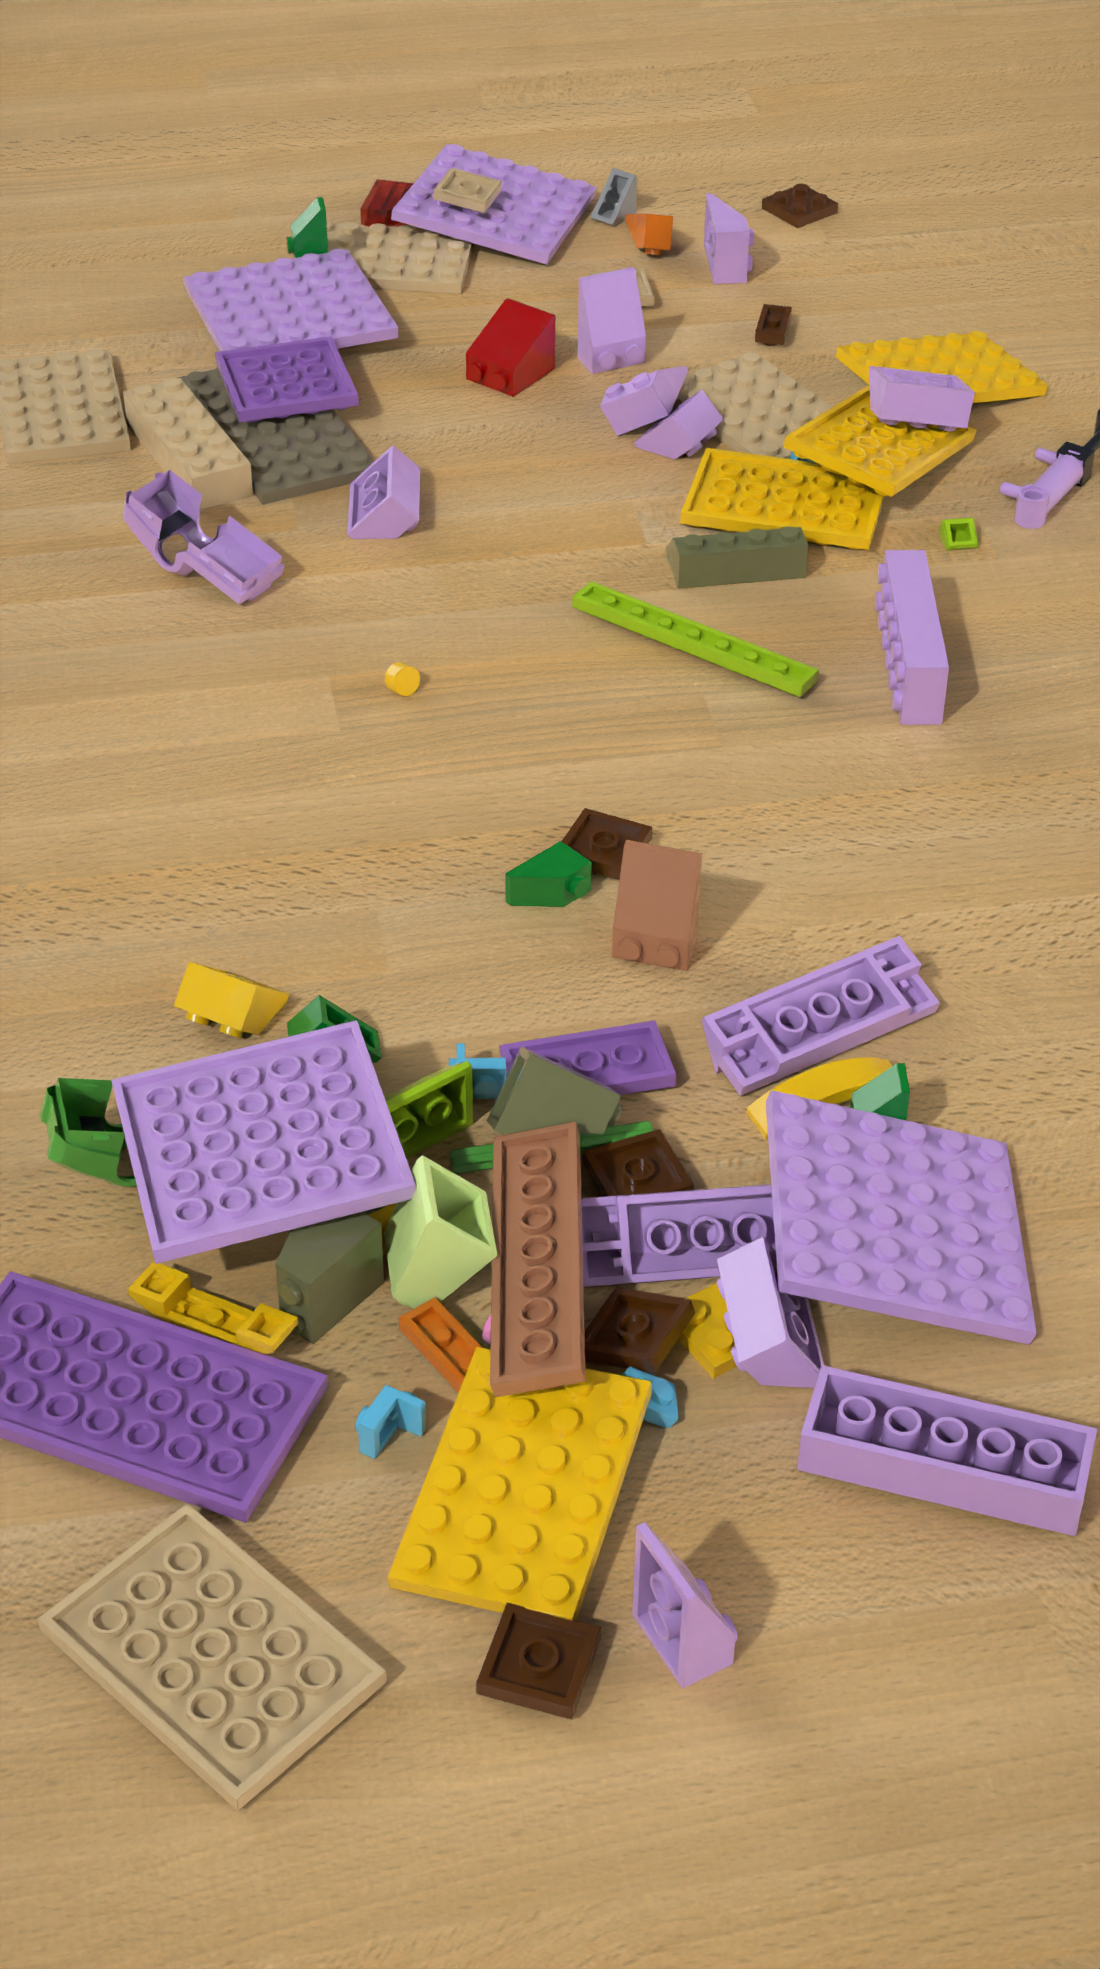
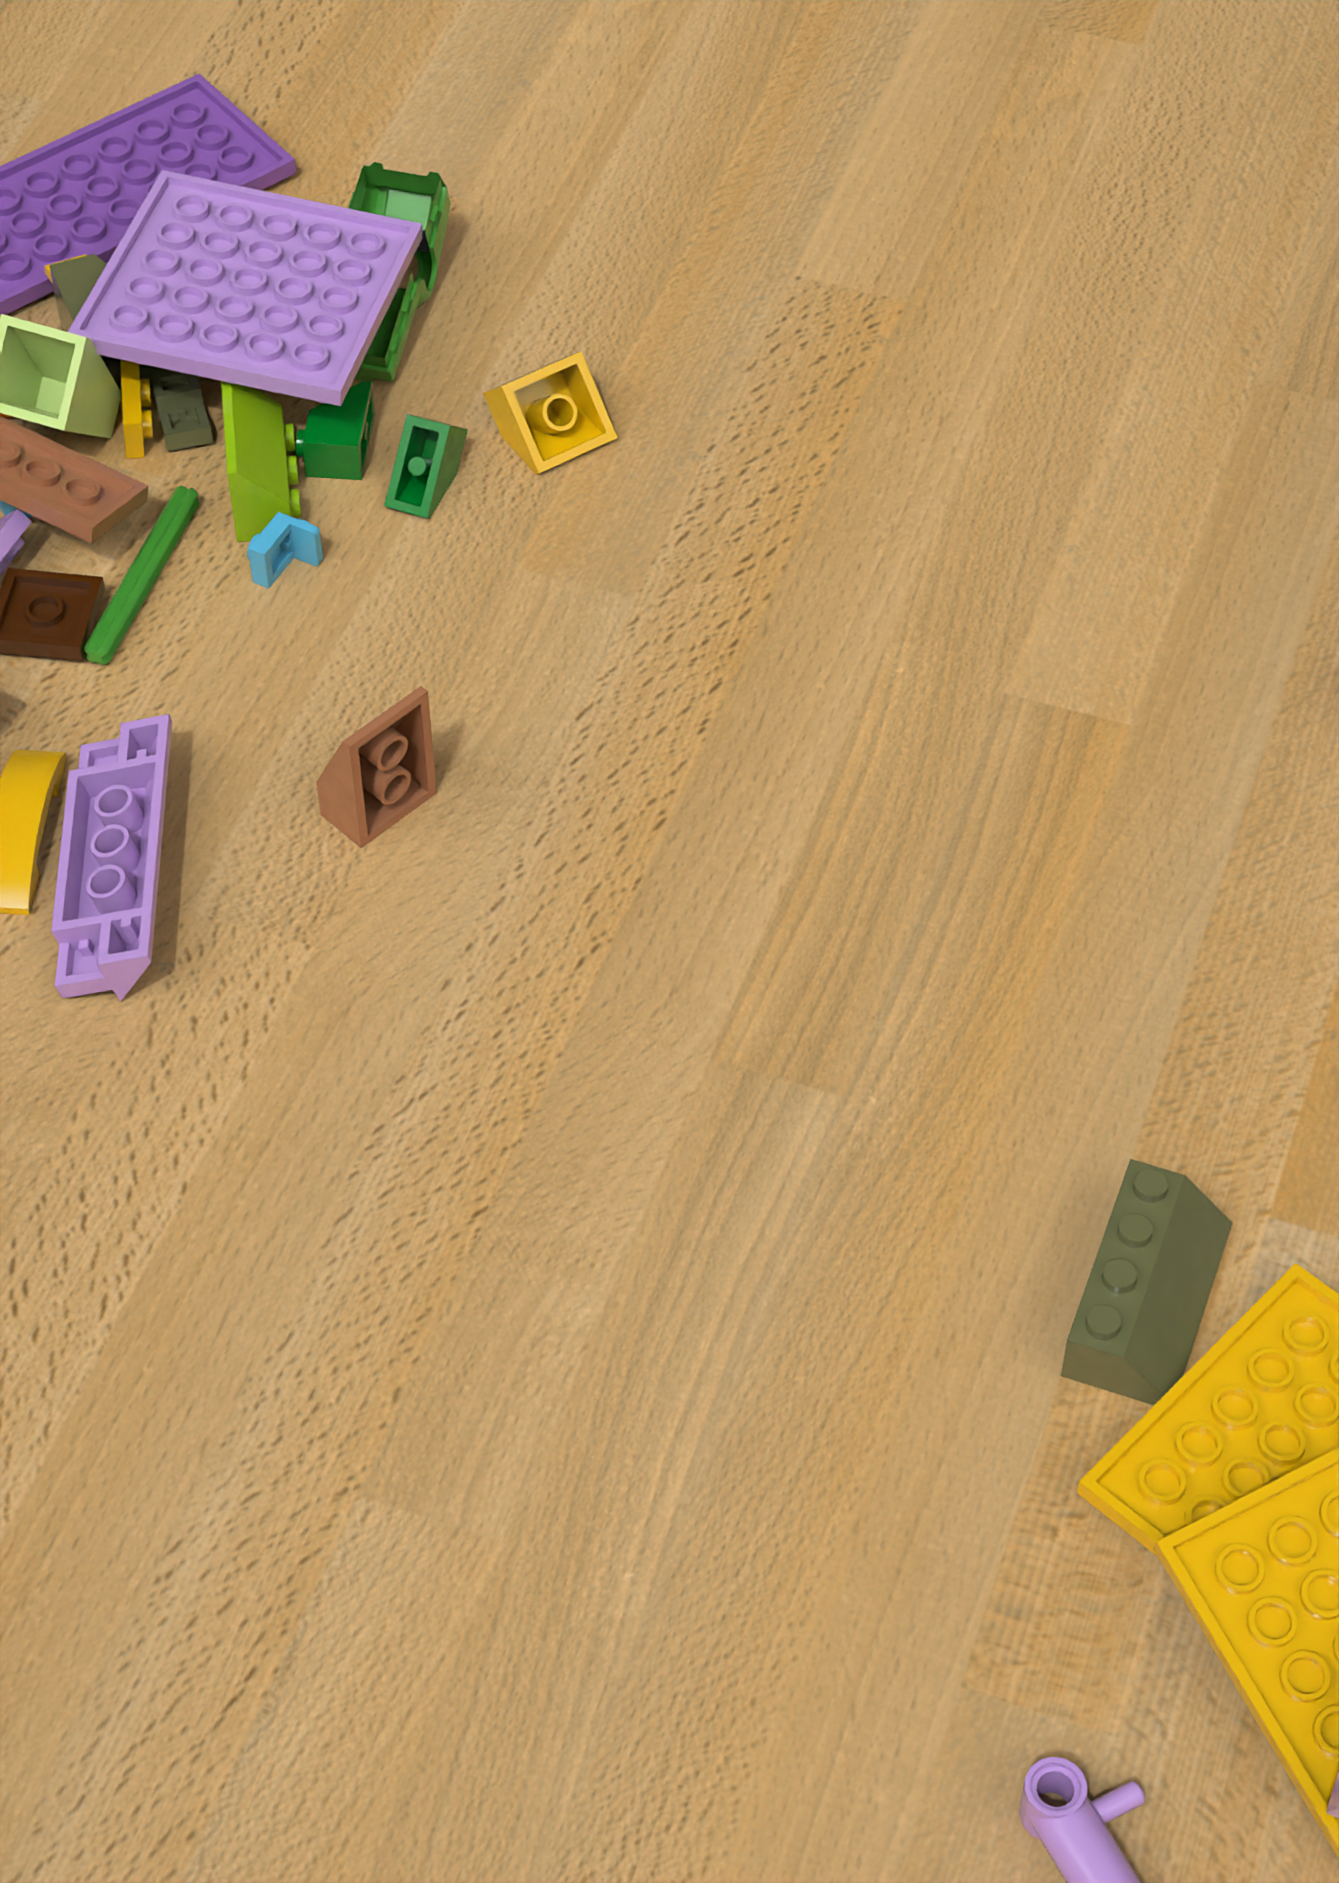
camera: 120 degrees right, 10 degrees up
(402, 679) = (1058, 773): yellow piece -> none
(549, 878) = (546, 742): green slope -> none
(549, 1094) = (159, 555): olive slope -> none
(602, 840) = (579, 822): reddish brown plate -> none
(620, 1057) = (225, 644): medium lavender plate -> none
(696, 639) = (955, 1127): lime plate -> none
(911, 637) = (760, 1355): lavender brick -> none
(958, 533) = (1051, 1652): lime slope -> none

